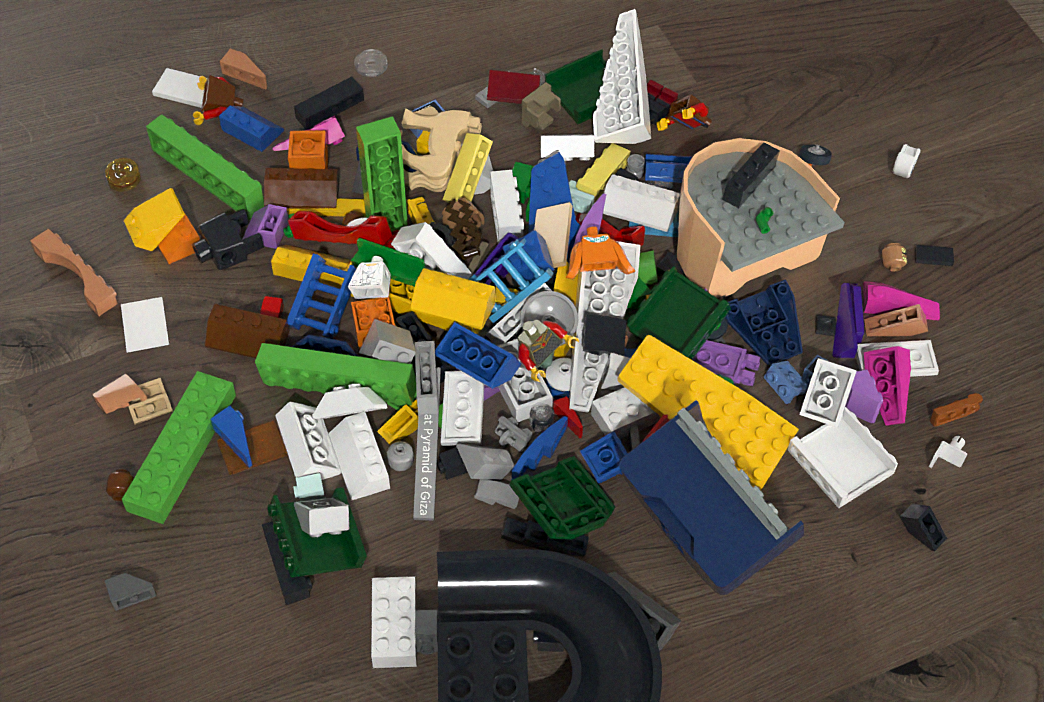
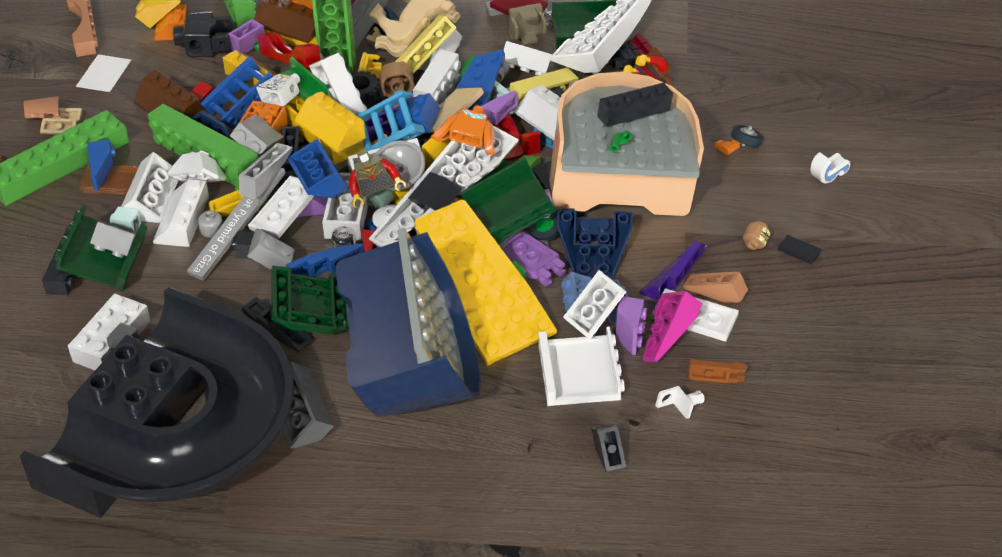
camera: 30 degrees right, 10 degrees down
(462, 222) = (374, 94): dark brown piece -> none
(494, 491) = (260, 277): light grey slope -> none
(511, 434) = (311, 241): light grey hips -> none
(825, 325) = (650, 266): black tile -> none
(883, 298) = (716, 260): dark pink wedge -> none

